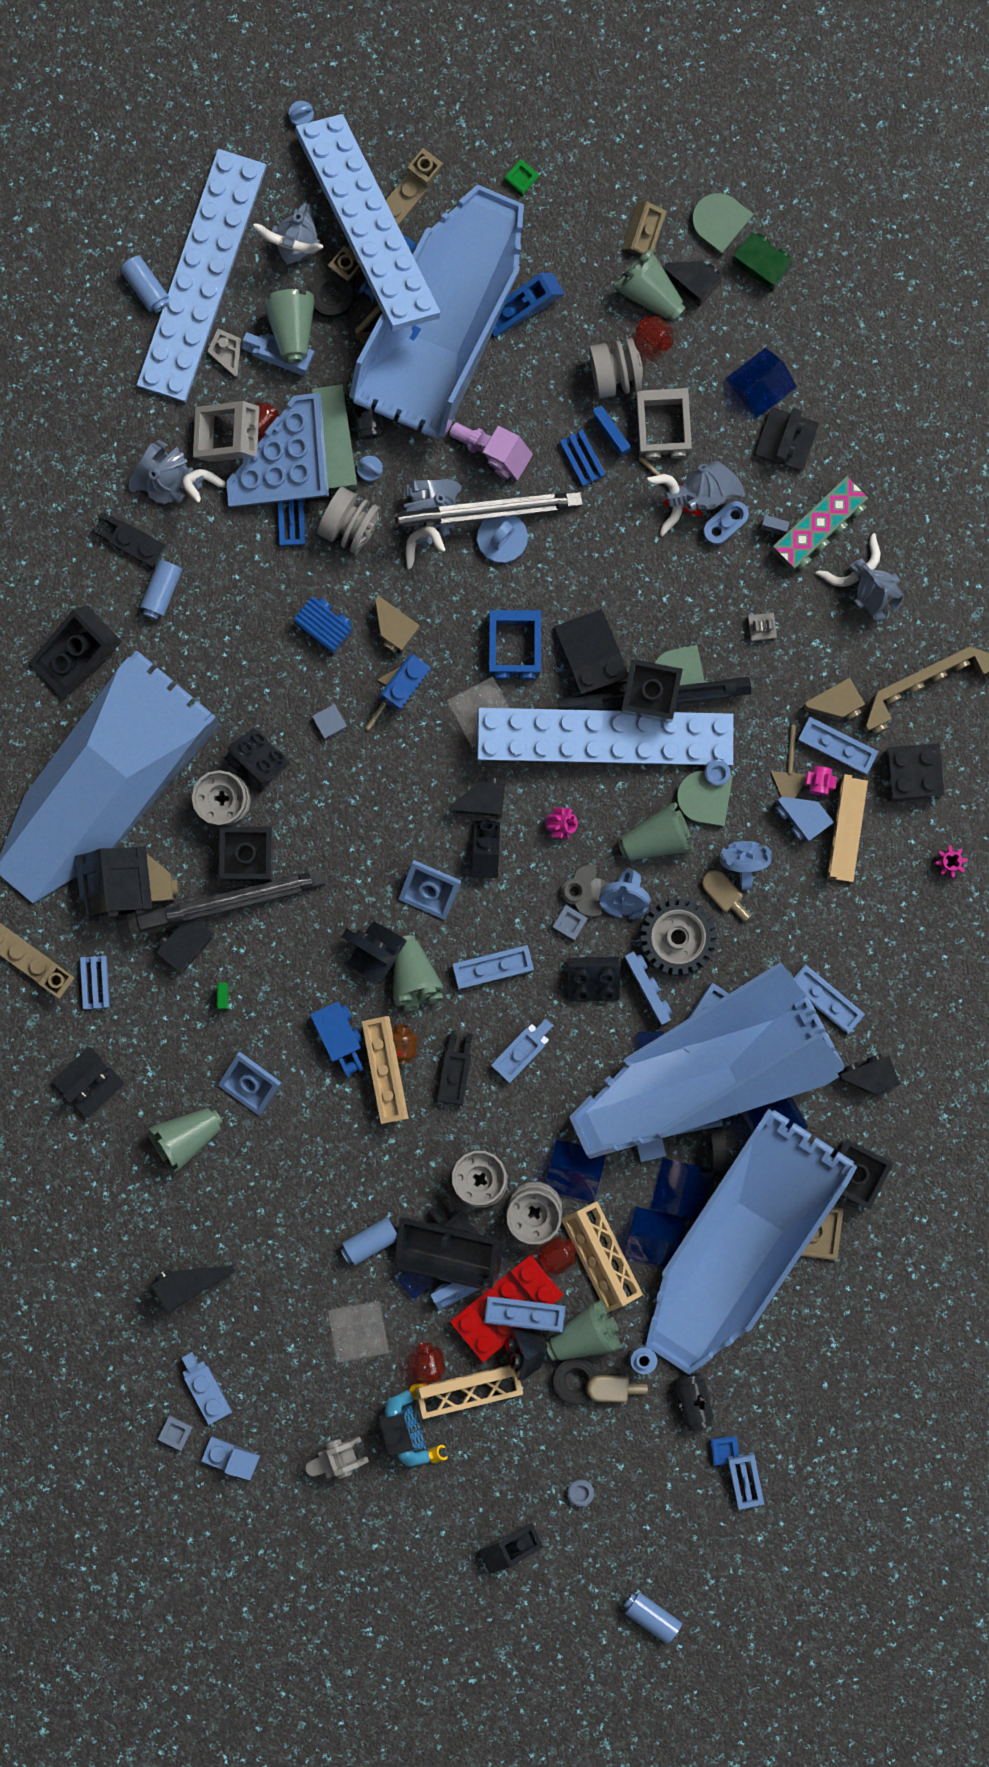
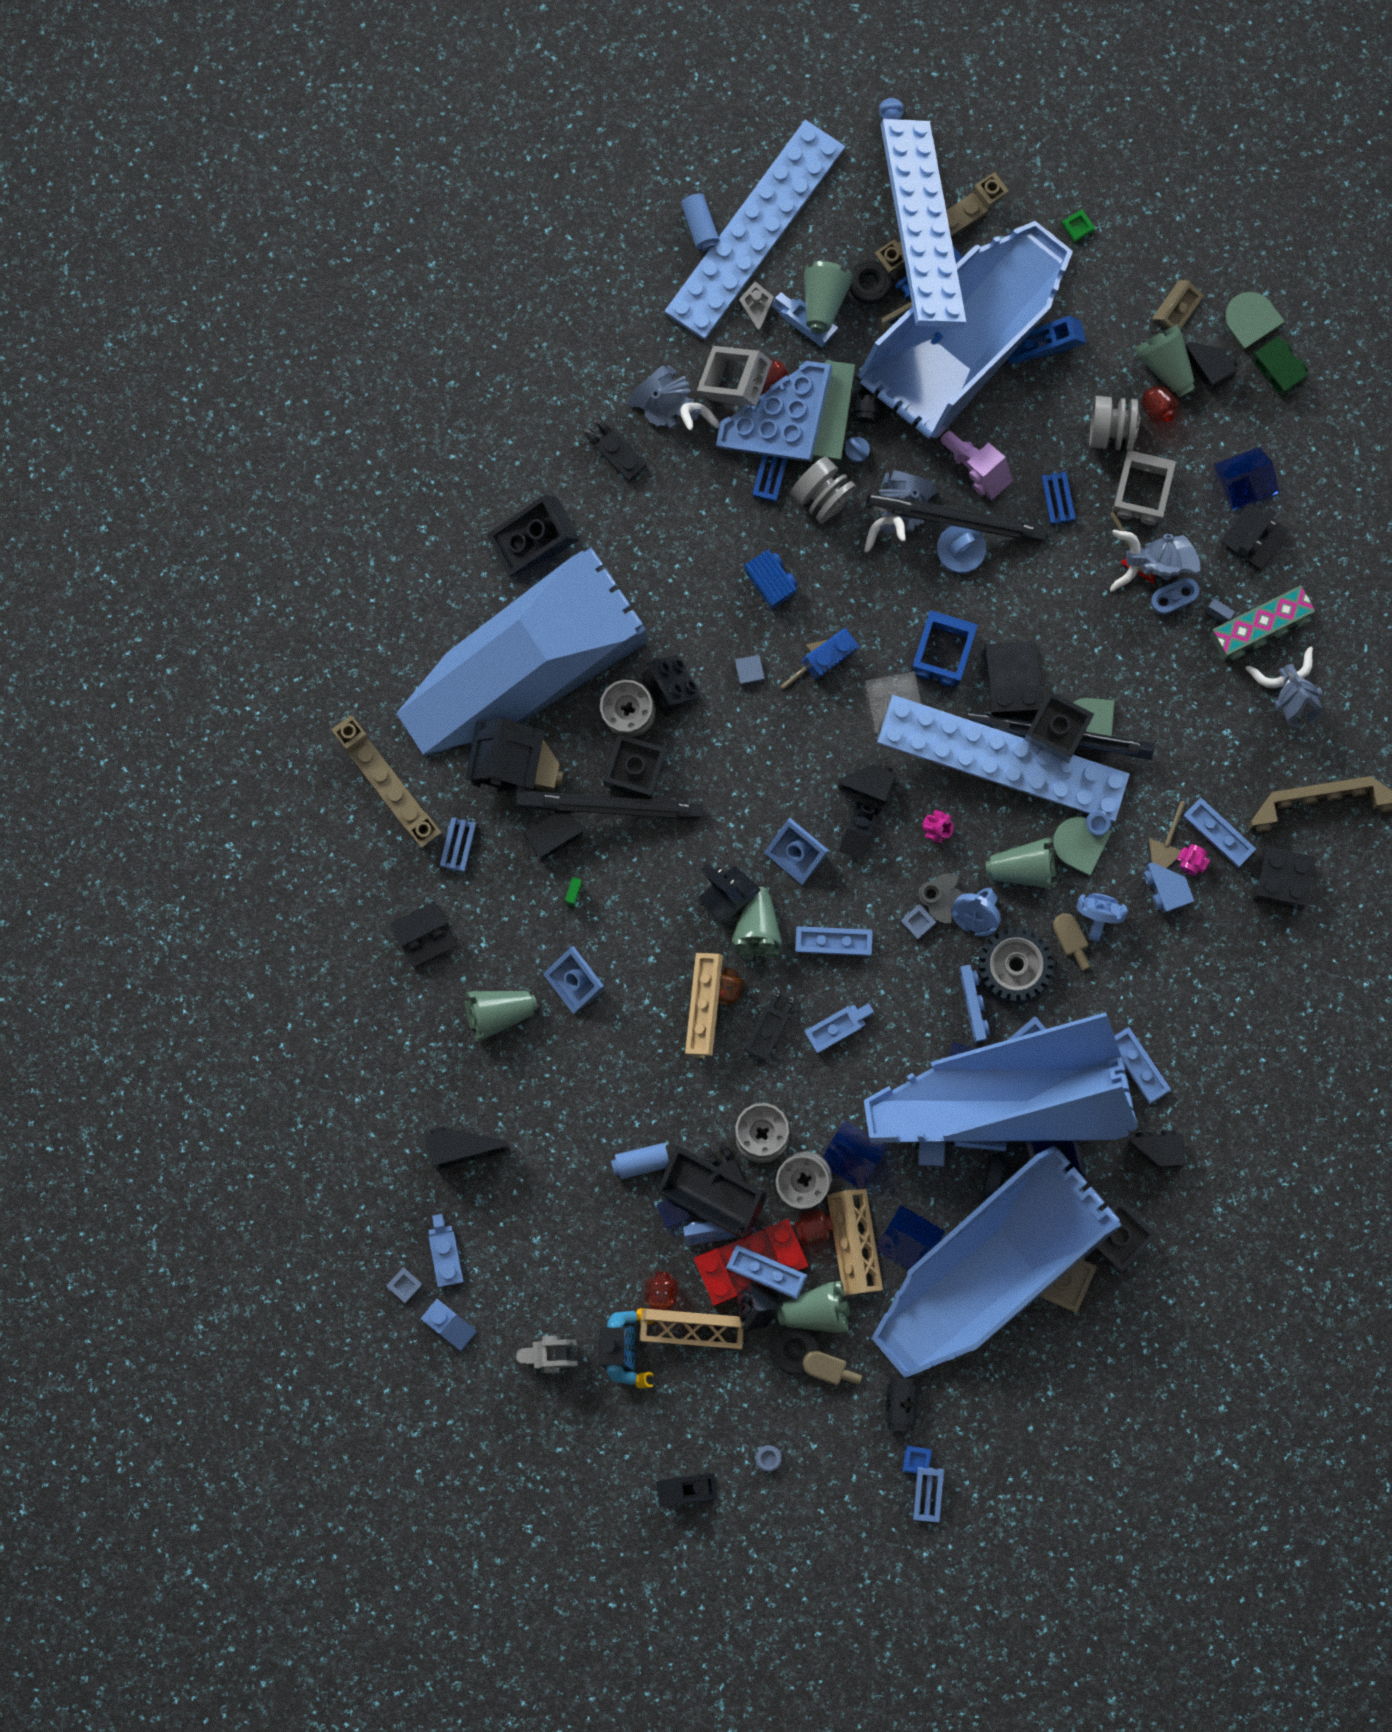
camera: 20 degrees right, 5 degrees down
(160, 589) = (629, 502): medium blue brick -> none
(294, 235) = (852, 217): sand blue helmet -> none
(338, 1035) = (670, 961): blue brick -> none
(358, 1331) = (605, 1240): clear brick -> none
(395, 627) = (837, 601): dark tan slope -> none
(593, 979) = (924, 980): black bracket -> none
(611, 431) = (1092, 480): blue tile -> none
(639, 1351) = (860, 1355): medium blue brick -> none
(652, 1617) = (800, 1596): medium blue brick -> none
(681, 1189) = (948, 1200): clear blue slope -> none
(762, 627) = (1180, 702): flat silver tile -> none
(837, 702) = (1230, 791): dark tan slope -> none
(847, 829) = (1205, 913): tan fence -> none
(958, 862) = (1293, 965): dark pink gear -> none

